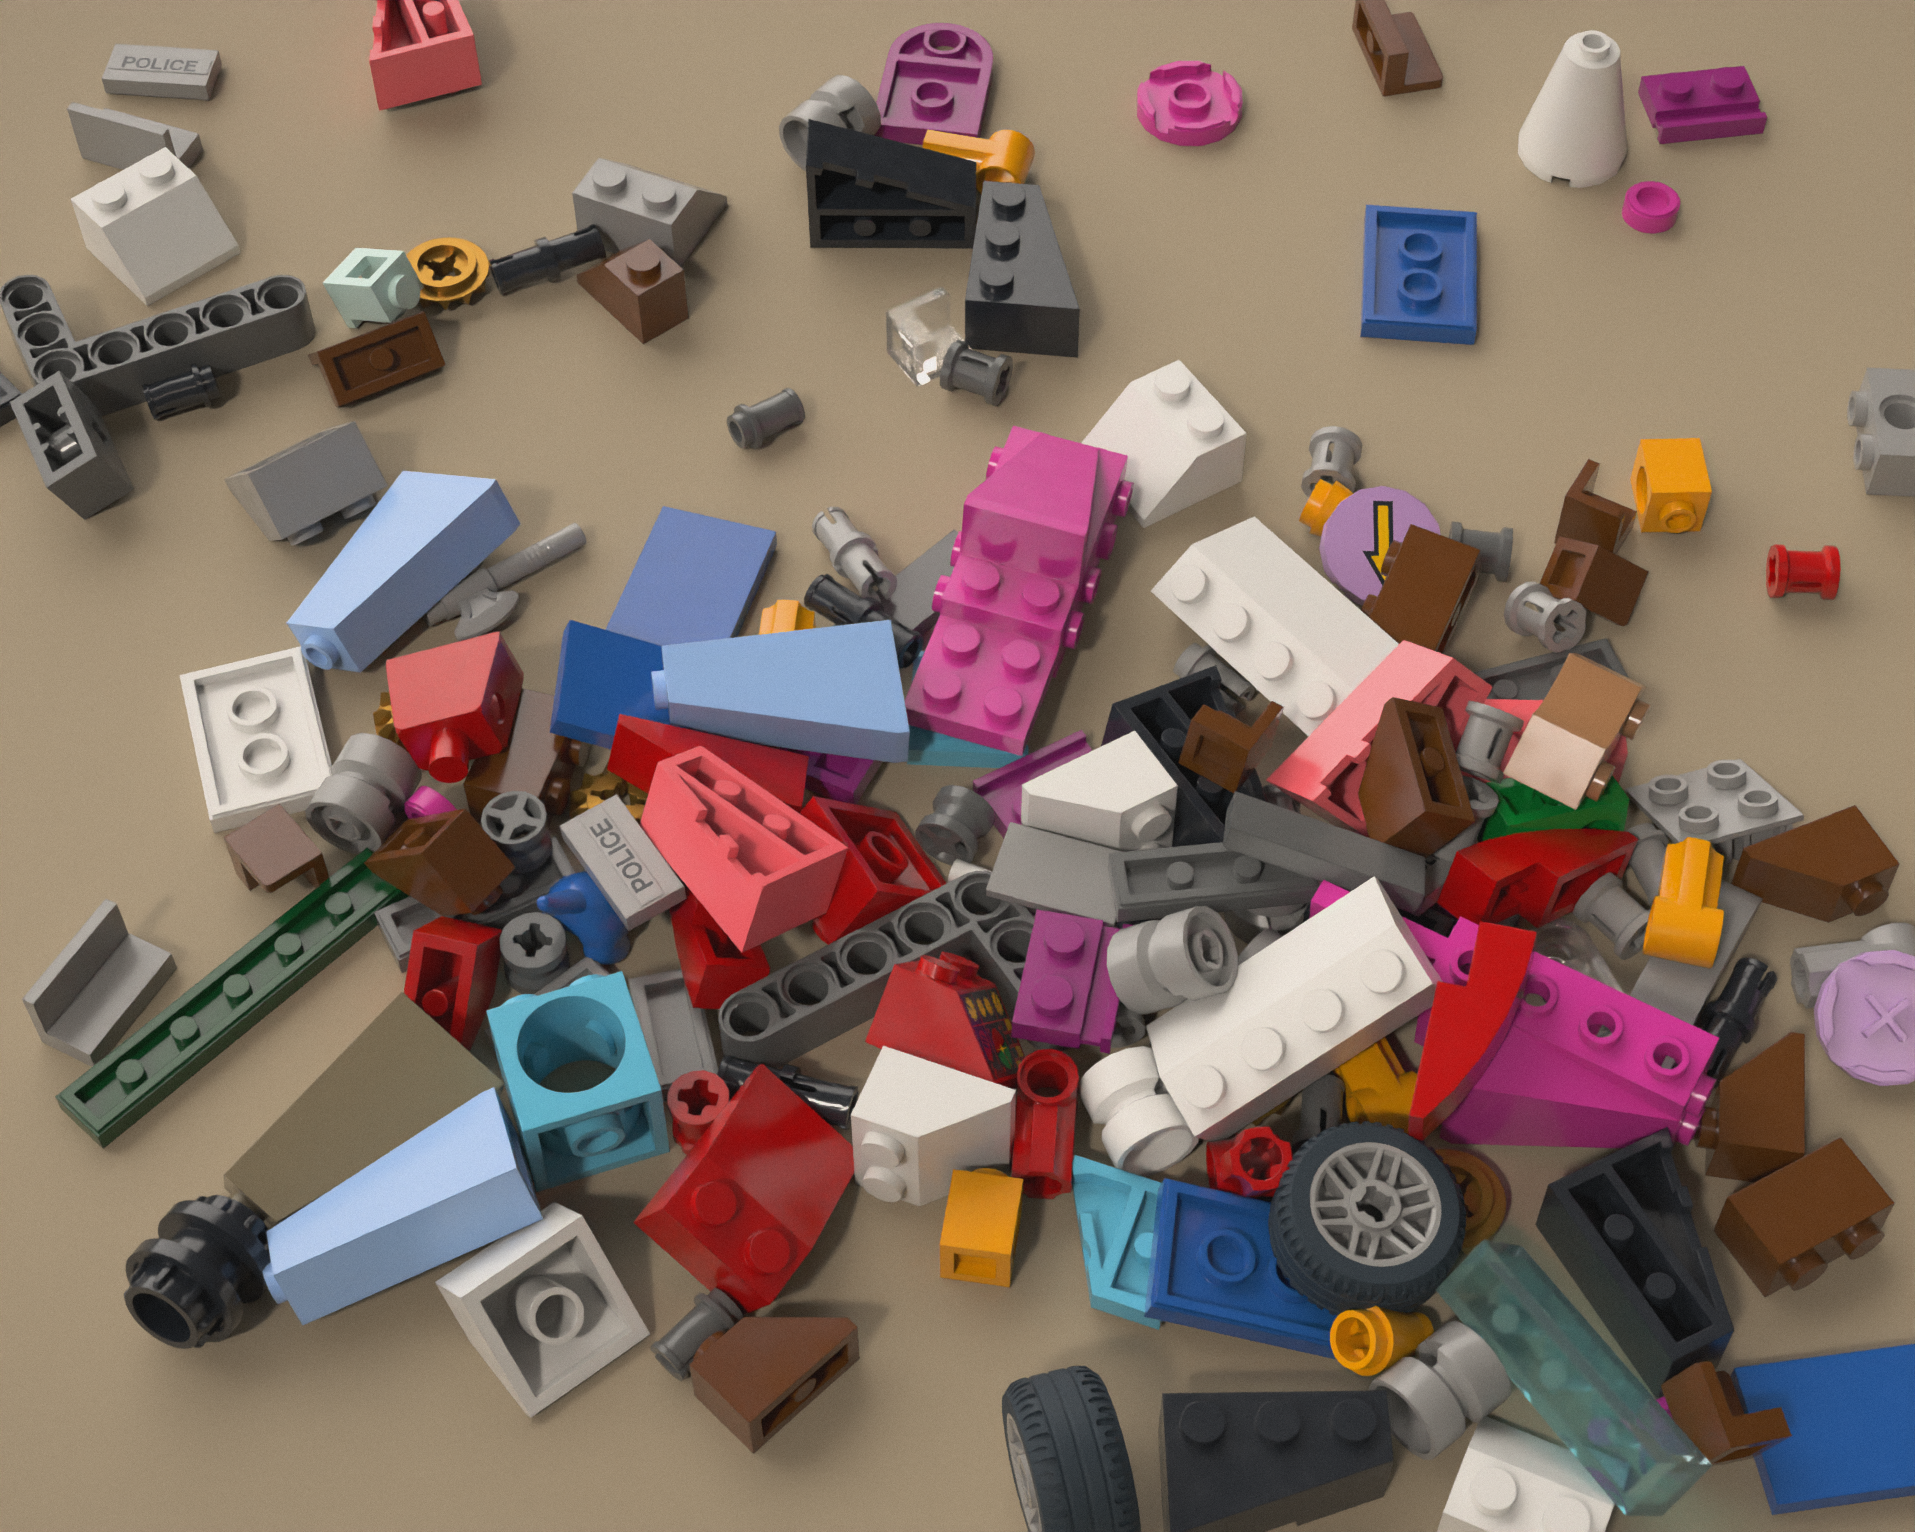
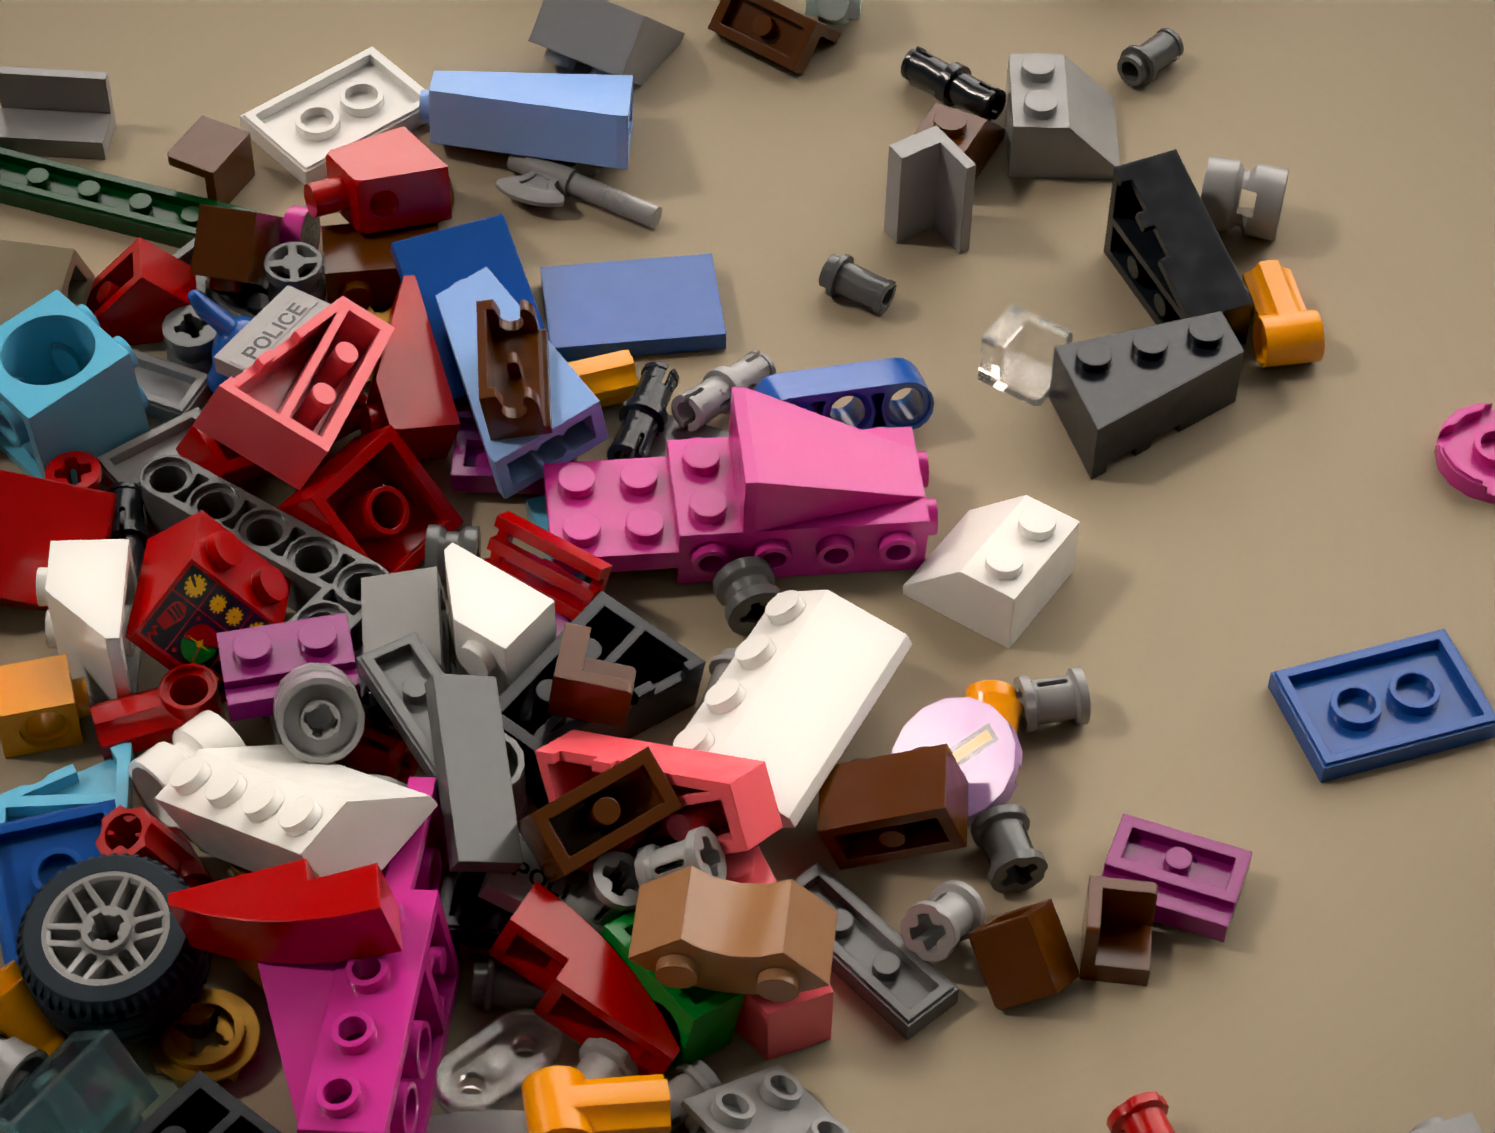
camera: 65 degrees right, 5 degrees down
(363, 793) = (282, 176): light grey wheel -> none
(445, 255) = (878, 24): pearl gold gear -> none
(605, 127) = (1141, 63): none -> dark grey pin
(713, 307) = (929, 188): none -> light grey panel
(830, 670) = (513, 372): none -> reddish brown hinge
(920, 476) = (870, 384): none -> blue beam
(935, 87) = (1370, 262): magenta tile -> none
(976, 372) = (994, 404): dark grey bush -> none
(1037, 756) = (503, 549): none -> red tile
(1117, 623) = (745, 590): none -> dark grey wheel
(1545, 459) = (1194, 875): none -> magenta plate
(1670, 485) = (1199, 988): light orange brick -> none

